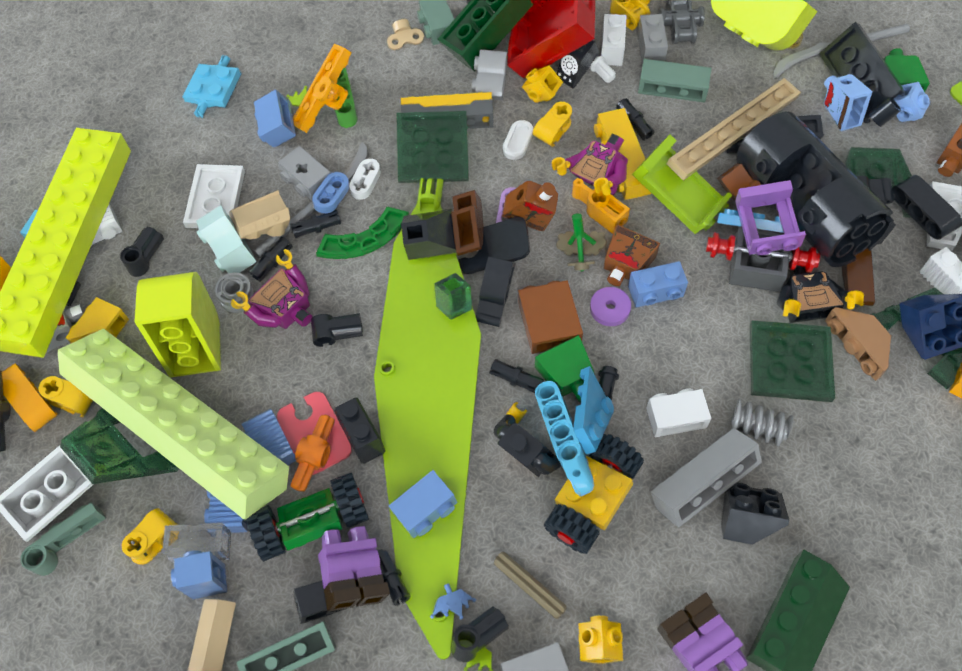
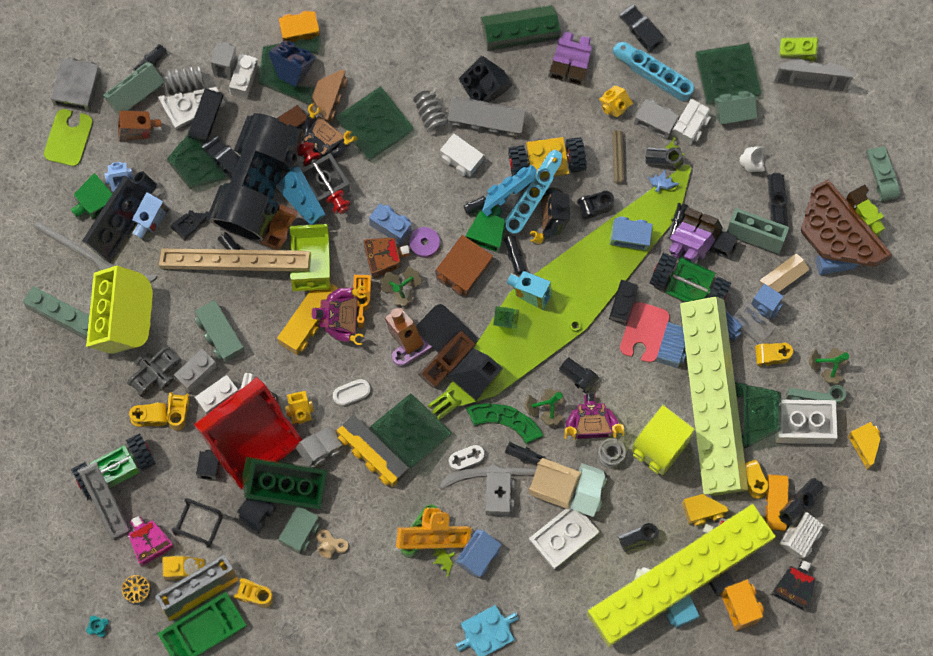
camera: 140 degrees left, 10 degrees up
(62, 579) = (834, 360): none -> dark tan plant
(268, 259) = (572, 457): black pin -> none
(312, 453) = (656, 315): orange axle -> none
(325, 272) = (549, 401): none -> dark tan plant
(329, 194) = (498, 460): medium blue plate -> none
(458, 343) = (531, 289): none -> medium azure torso
(494, 291) = (474, 306): black piece -> none
(495, 500) = (592, 206): none -> black piece
(554, 123) = (325, 376): yellow piece -> none
(637, 119) = (272, 332): black pin -> none
(763, 195) = (311, 160): medium lavender panel -> none

